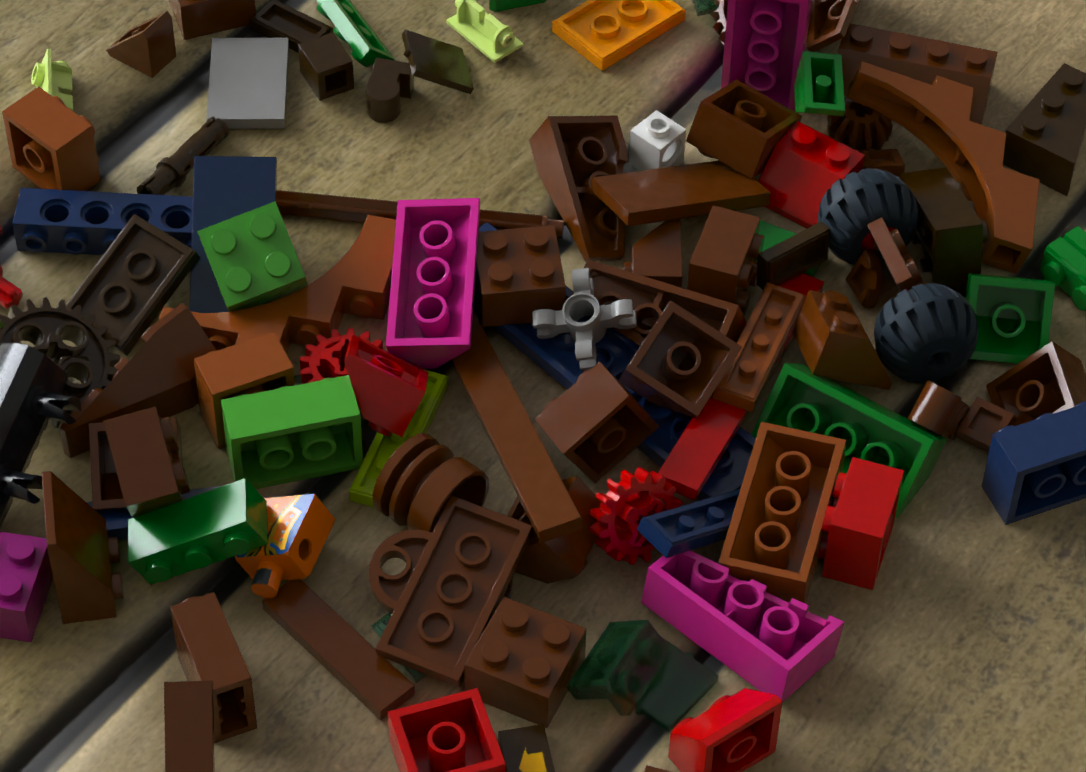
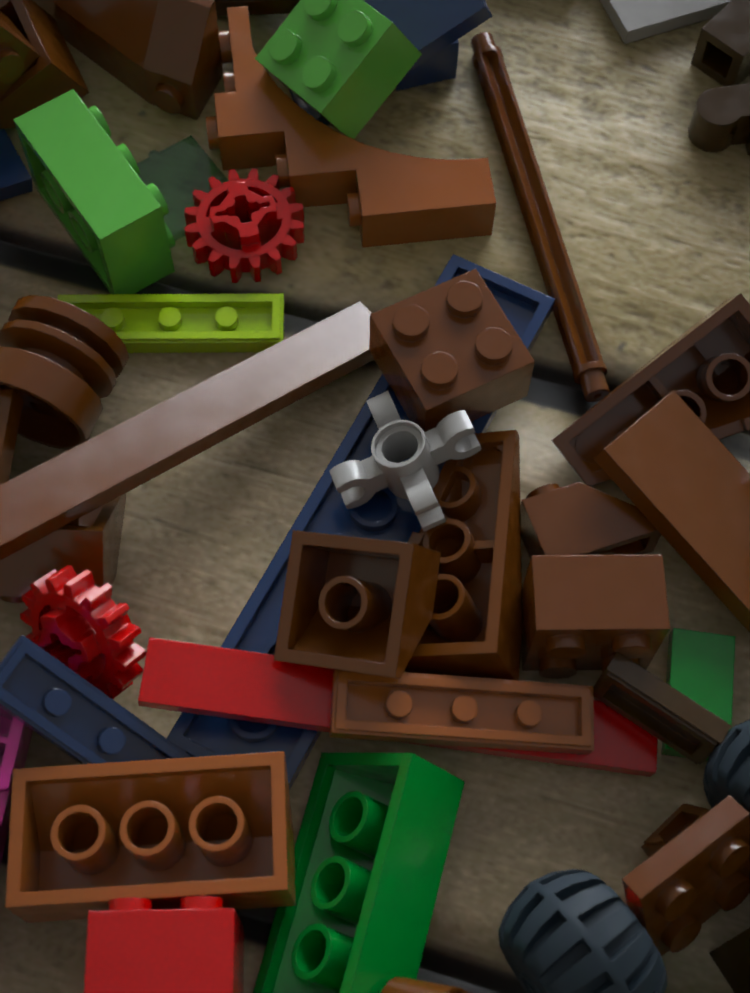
camera: 70 degrees right, 15 degrees up
(237, 370) = (152, 117): dark orange brick -> none
(384, 386) = (198, 256): red slope -> none
(433, 280) = (388, 249): dark pink slope -> none
(596, 422) = (215, 528): reddish brown brick -> none
(837, 342) = (507, 830): reddish brown slope -> none

